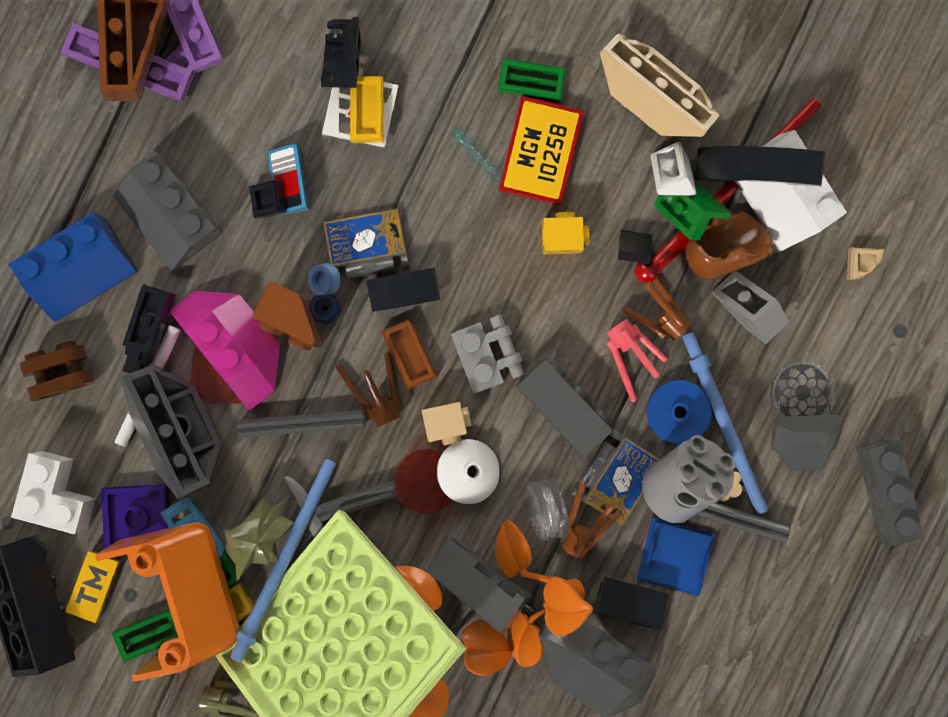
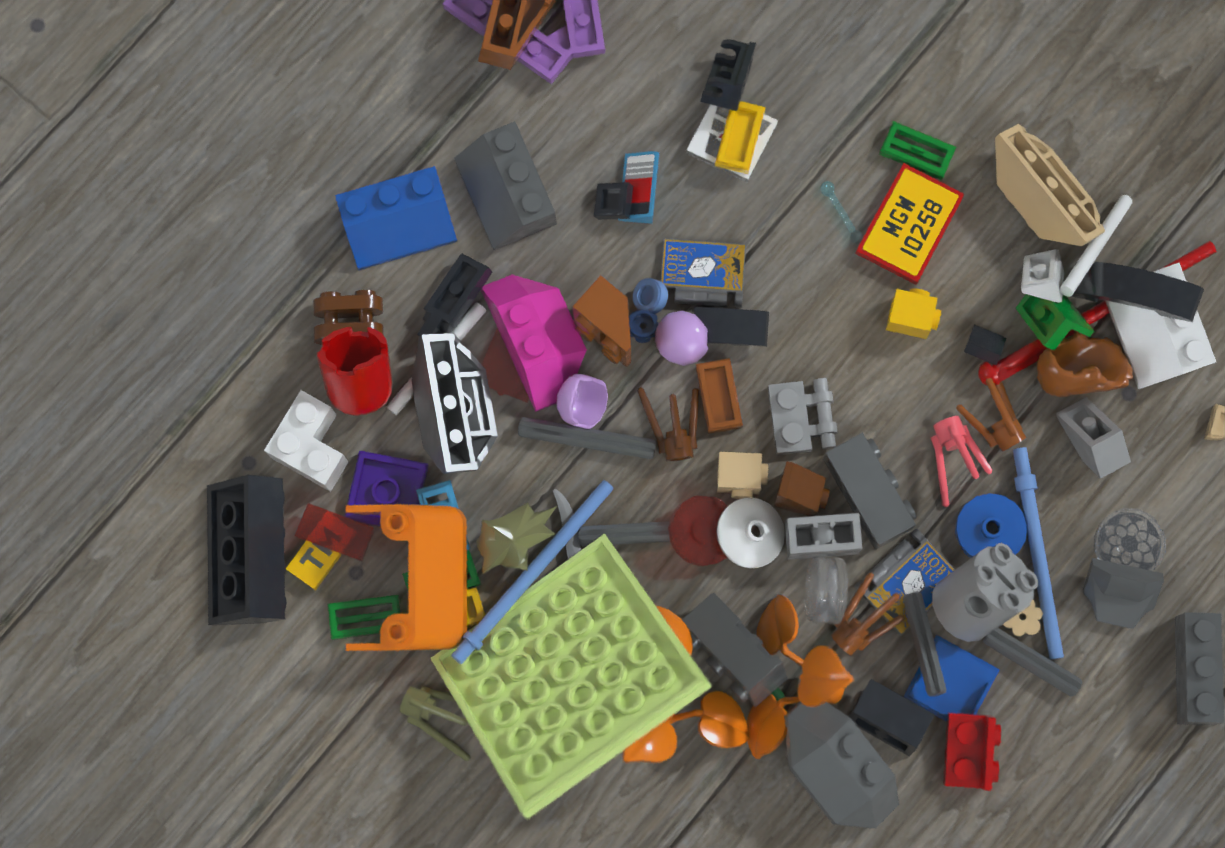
camera: 15 degrees right, 10 degrees down
(72, 422) = (356, 370): none -> red cylinder
(85, 570) = (334, 532): none -> clear red tile
(287, 393) = (582, 400): none -> lavender hair
(361, 312) = (681, 338): none -> lavender hair
(504, 425) = (801, 490): none -> reddish brown slope
(533, 461) = (823, 536): none -> light grey brick
(645, 534) = (924, 644): none -> dark grey axle
(707, 614) = (971, 751): none -> red bracket
(713, 133) = (1095, 246): none -> white bar

